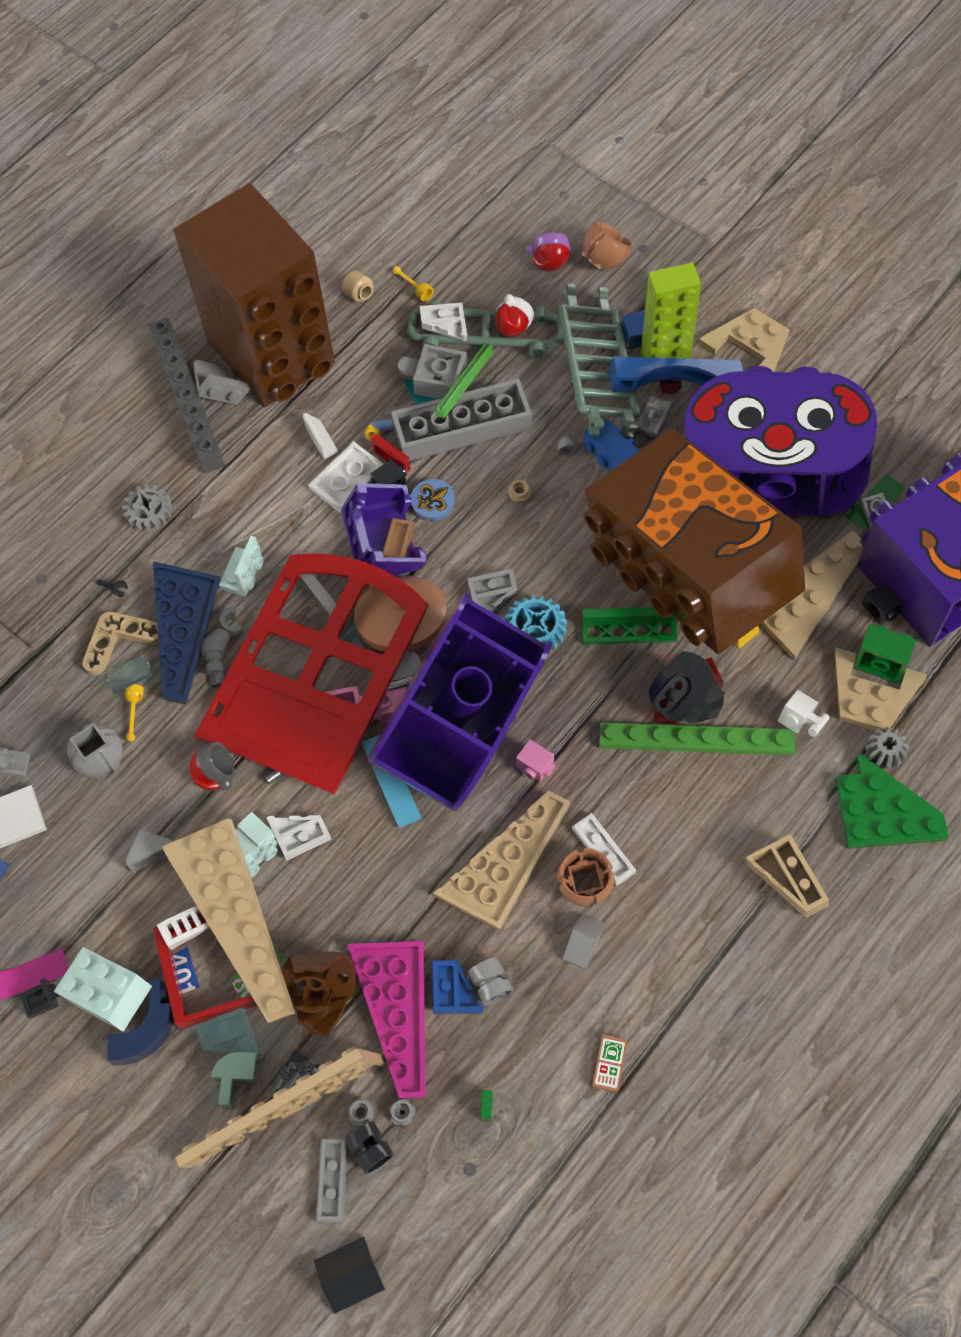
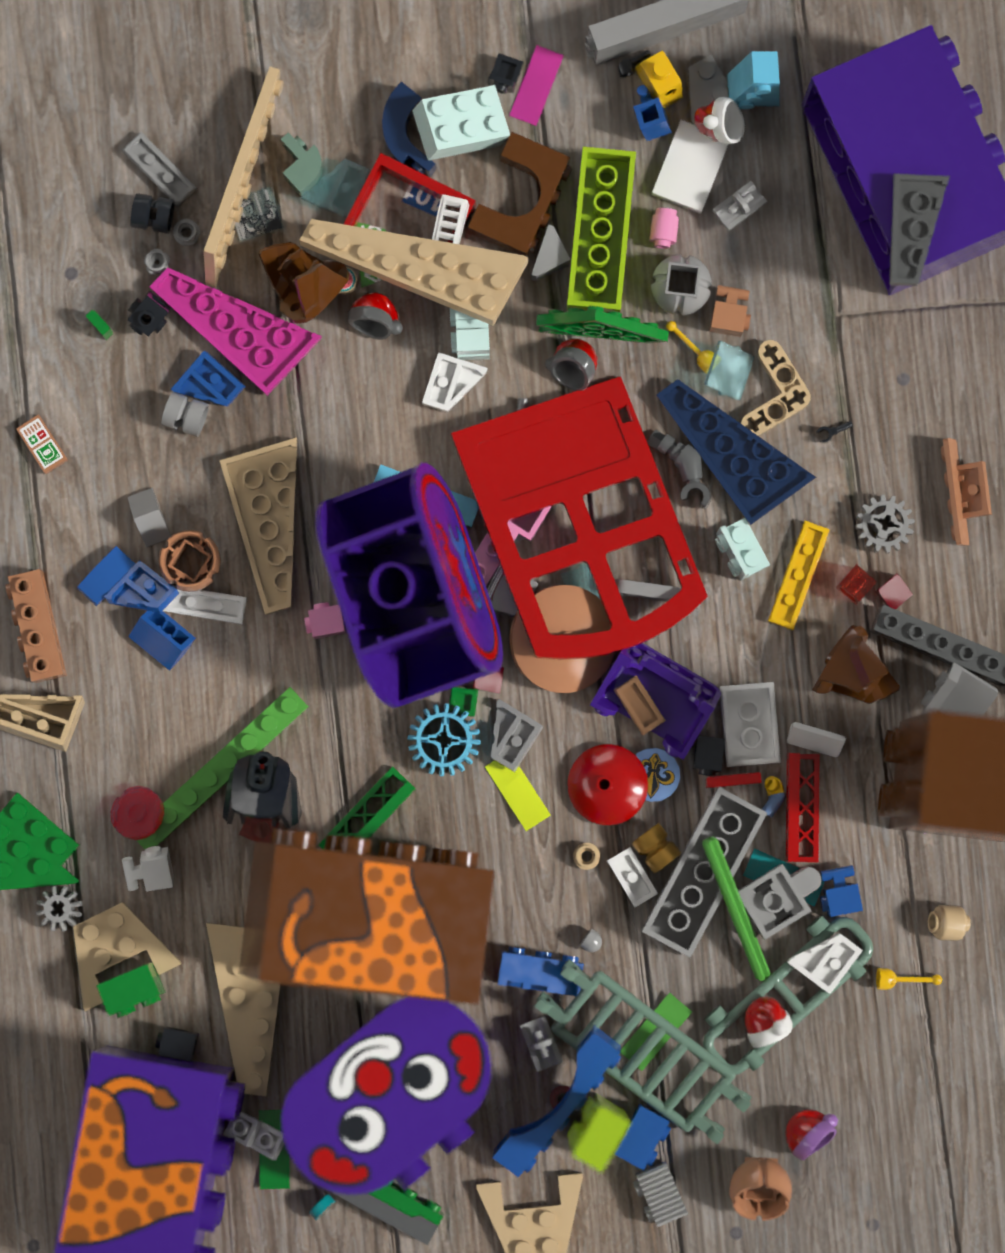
camera: 130 degrees right, 20 degrees up
(63, 796) = (664, 228): none -> bright pink brick
(80, 481) = (967, 491): none -> nougat bracket
(88, 903) = (520, 233): none -> reddish brown arch
(90, 705) = (728, 316): none -> nougat brick
(100, 830) = (601, 229): none -> lime brick
(169, 767) = (600, 324): none -> green wing
(186, 472) = (894, 592): none -> slope
(201, 490) = (856, 584): none -> clear red brick
(227, 529) = (798, 575): none -> yellow tile
(253, 440) = (855, 670): none -> reddish brown piece
(299, 921) = (374, 316): none -> dark grey piece
(348, 1275) = (83, 122): black slope -> none
(372, 412) = (792, 807): none -> red fence
(398, 345) = (843, 897): none -> blue brick
(445, 1075) = (154, 308): none -> black brick
(462, 528) = (626, 789): none -> red dish
(474, 456) = (656, 848): none -> pearl gold wheel
(505, 457) = (632, 877): none -> white plate
(523, 558) = (519, 794): none -> neon yellow sticker
(562, 376) = (669, 1009): none -> bright green sticker
(636, 892) = (142, 590): none -> blue wing
(652, 928) = (105, 575): none -> blue slope
(653, 852) = (162, 638): none -> blue brick
(732, 940) = (36, 626): none -> nougat brick
(778, 758) = (137, 813): none -> clear pink tile
(880, 445) = (322, 1207): none -> teal tile

